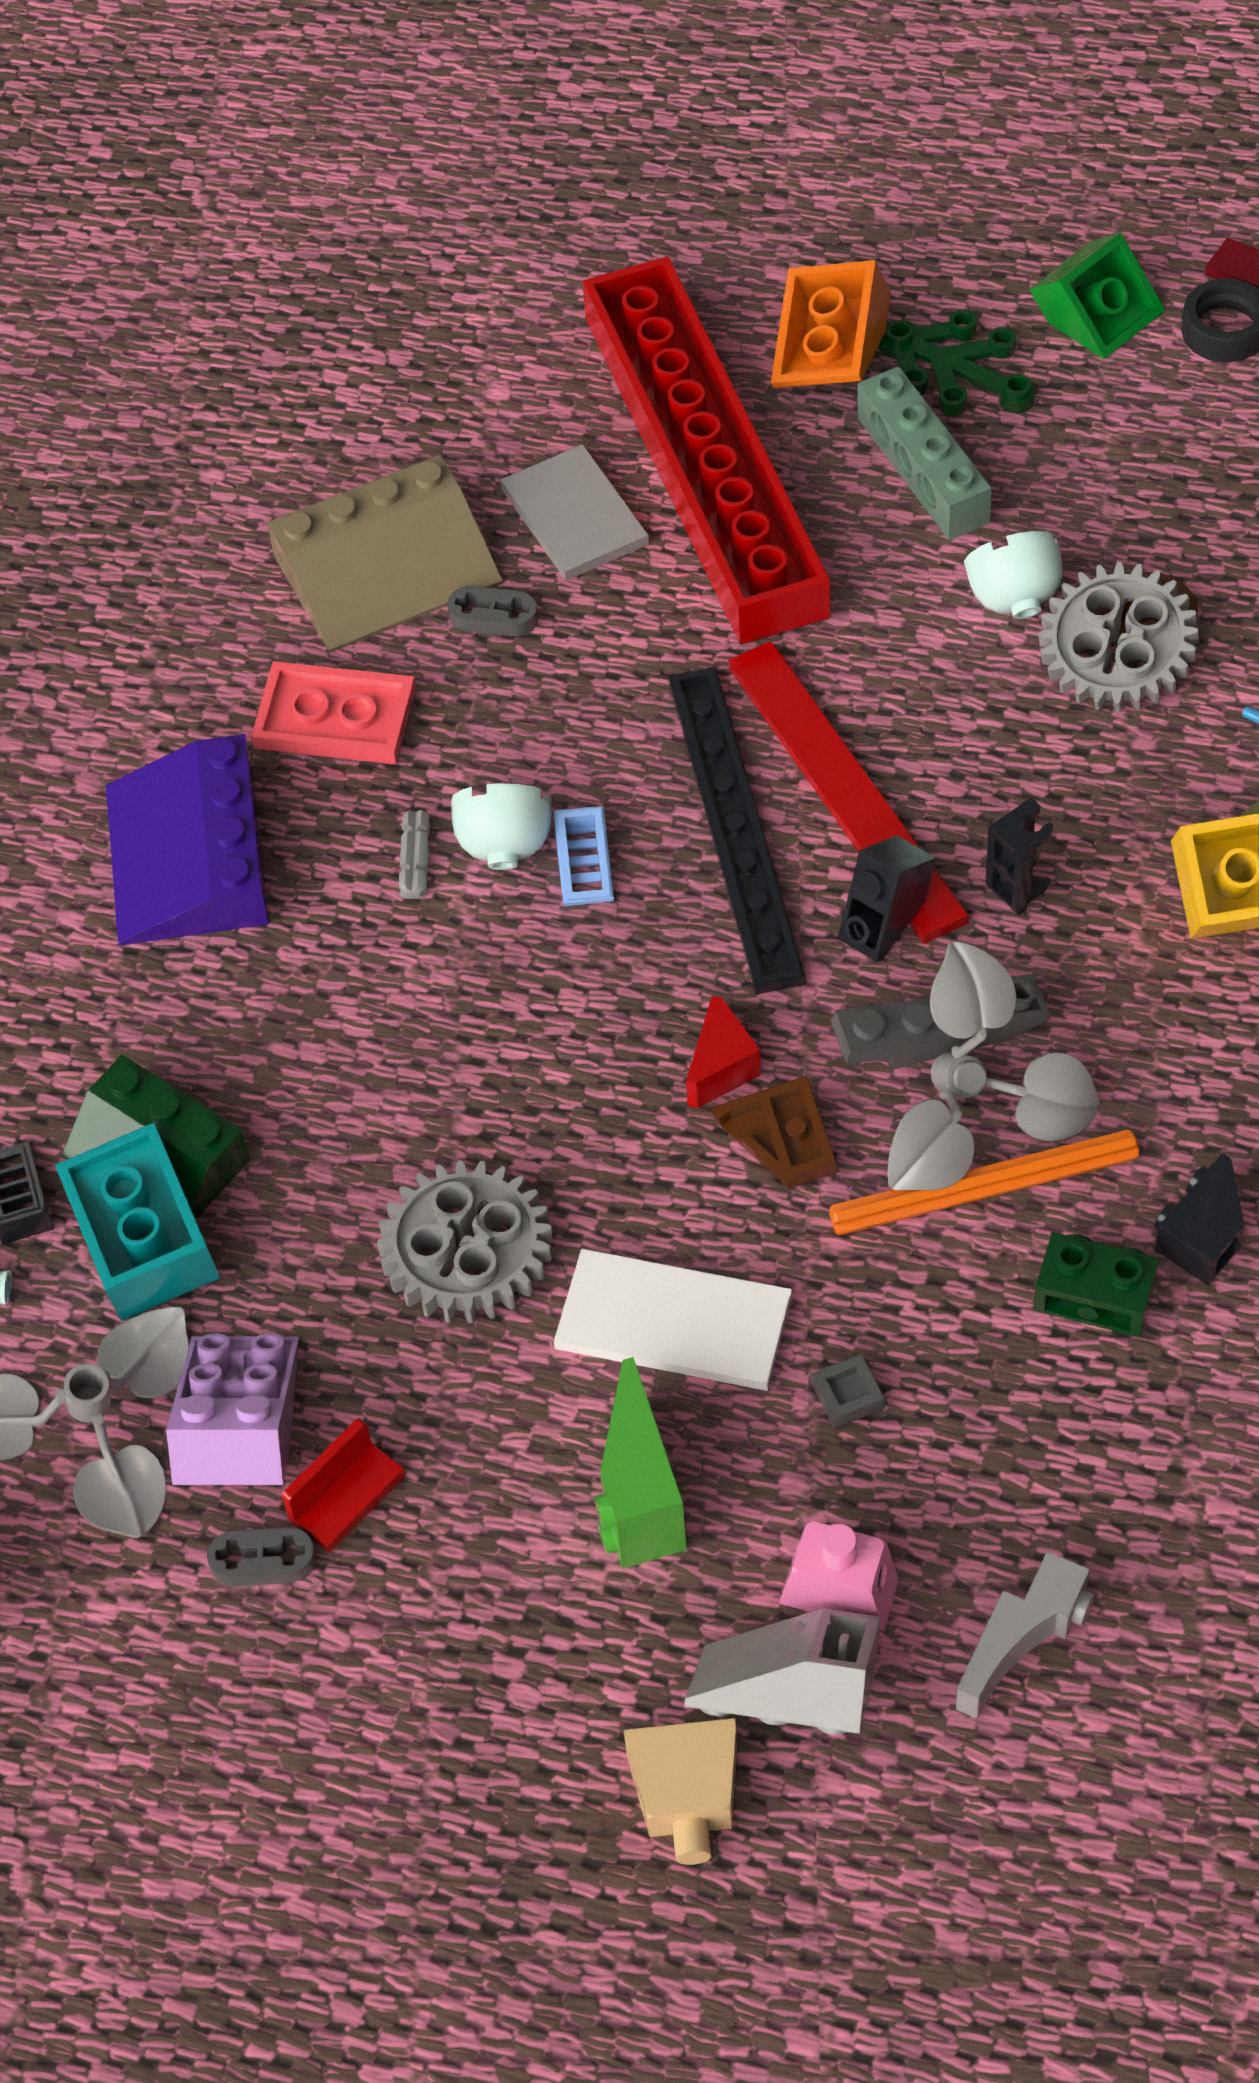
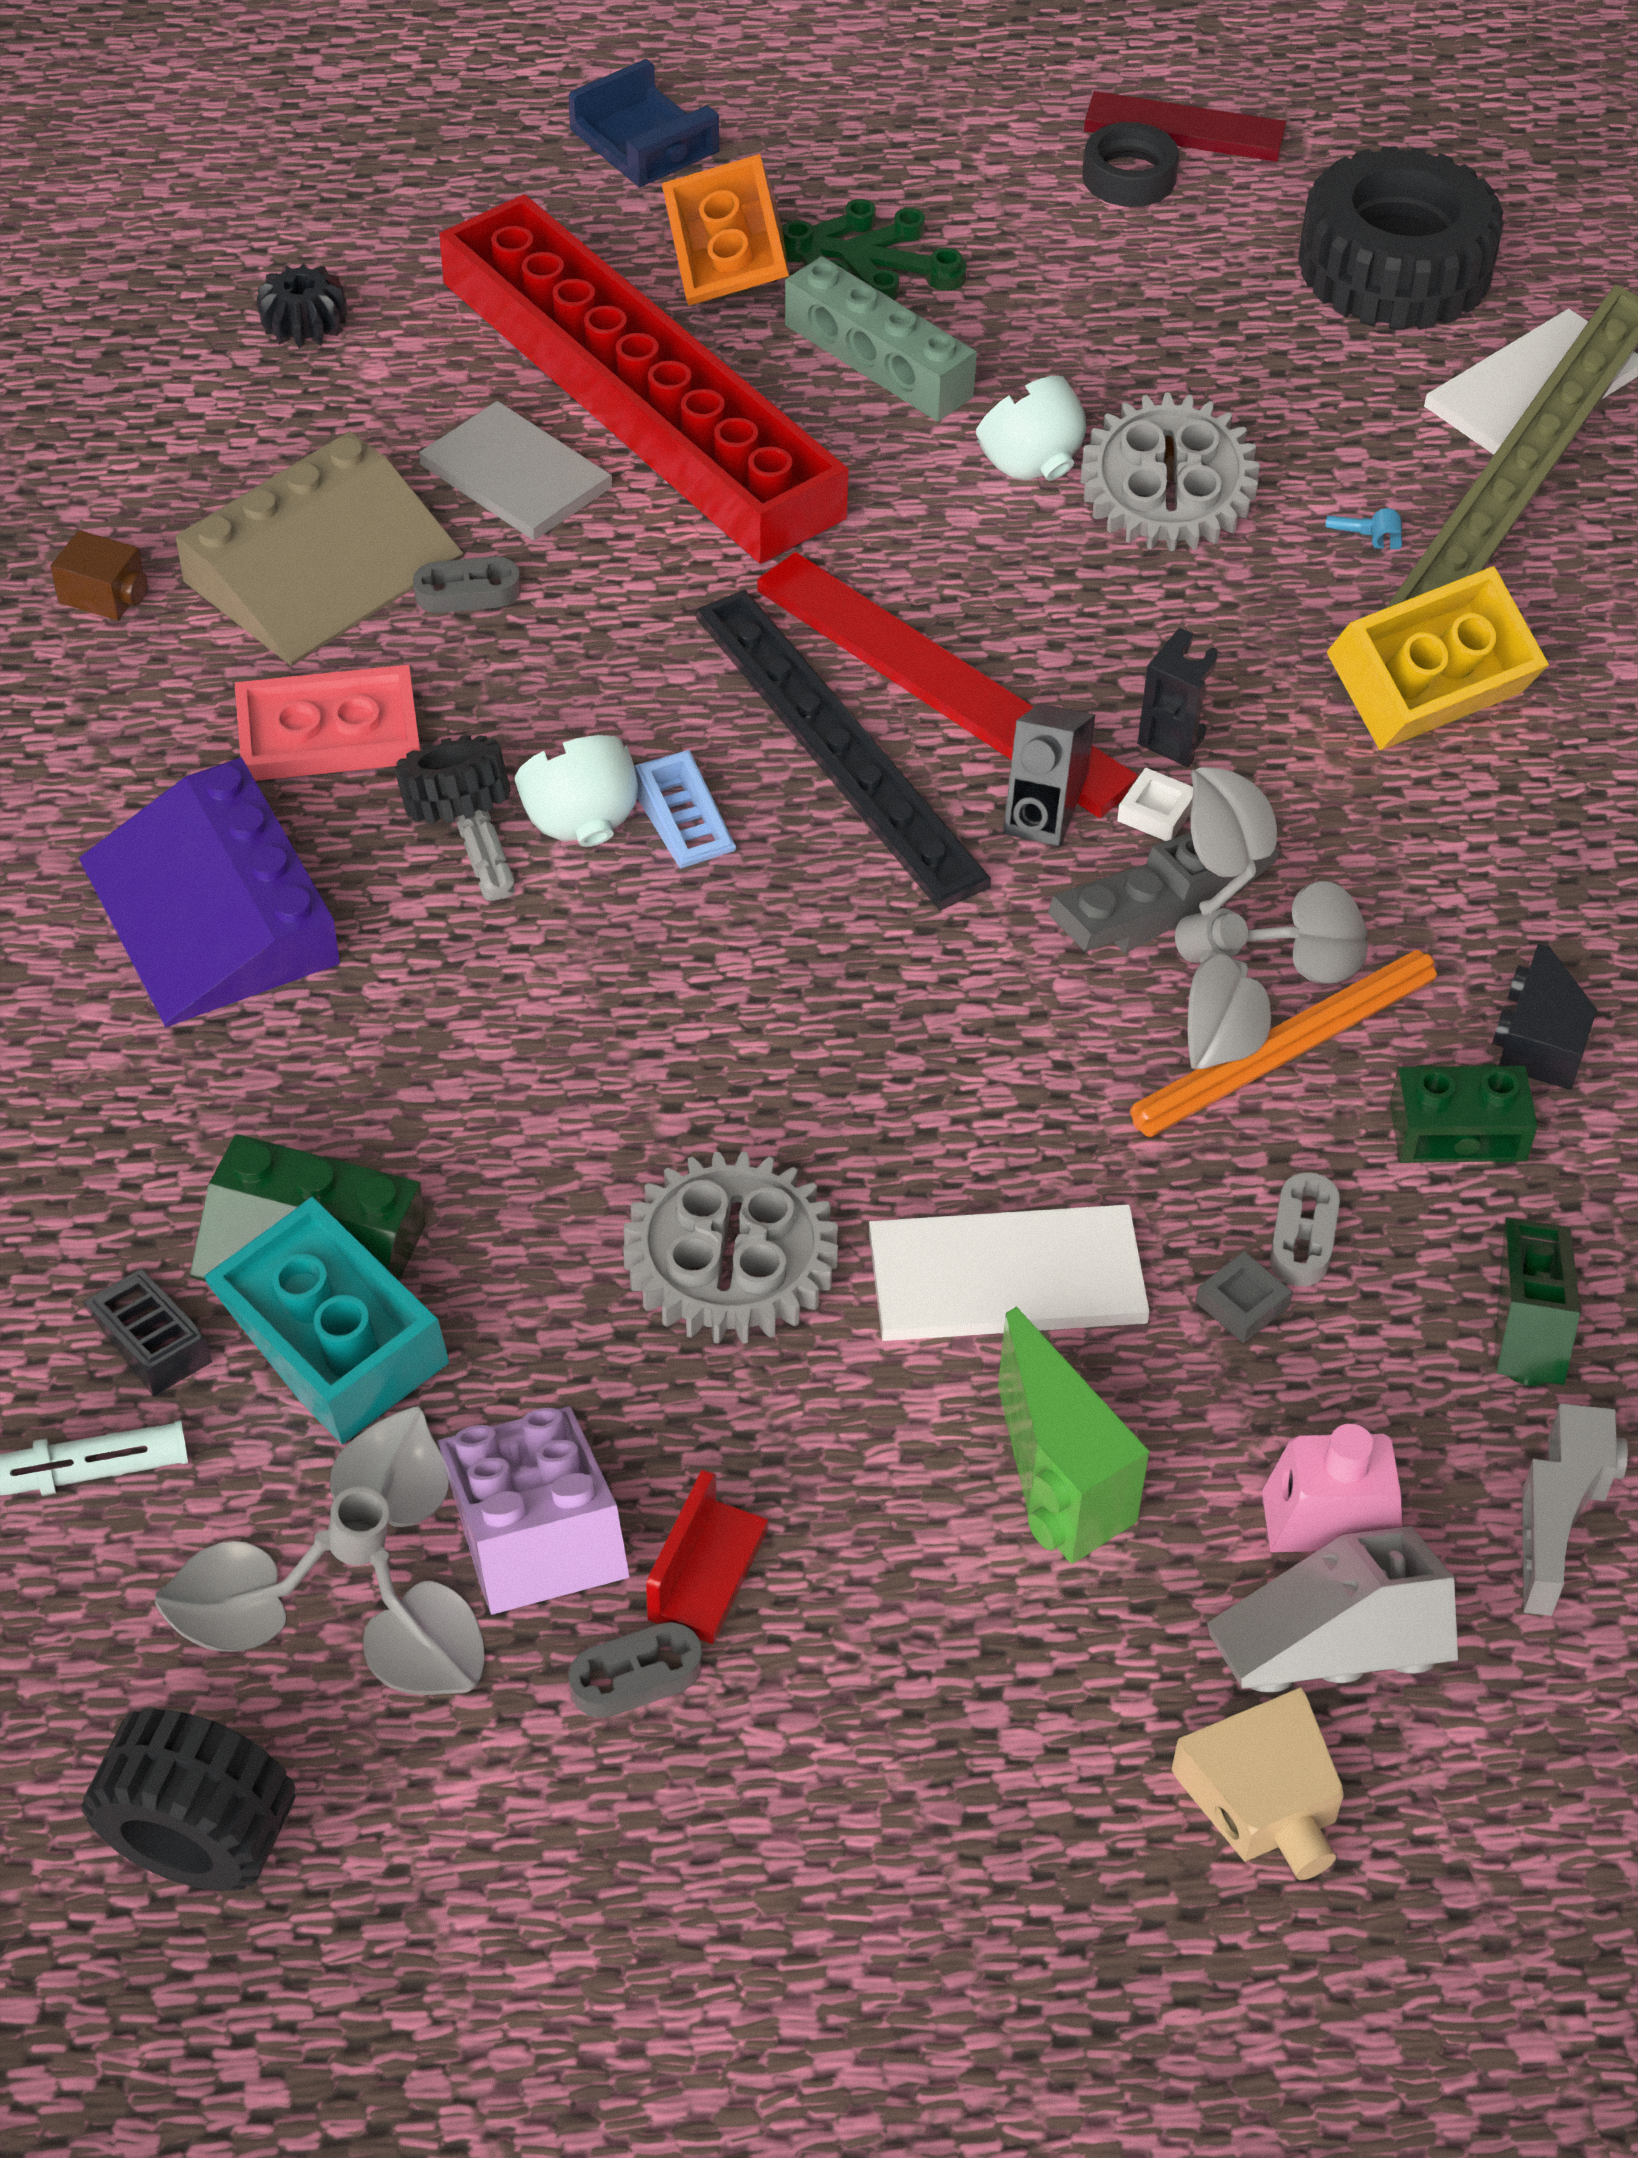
camera: 25 degrees left, 5 degrees down
(204, 540) = (99, 575): none -> reddish brown brick
(406, 788) = (452, 779): none -> black tyre
(457, 319) = (301, 304): none -> black gear
(723, 1056) = (942, 975): red slope -> none
(781, 1131) = (1040, 1042): reddish brown wing -> none
(810, 196) = (640, 126): none -> dark blue panel
(915, 1340) = (1318, 1231): none -> light grey beam
(975, 932) = (1156, 805): none -> white plate
(1079, 1458) = (1536, 1303): none -> dark green slope
(1098, 296) = (990, 162): green slope -> none

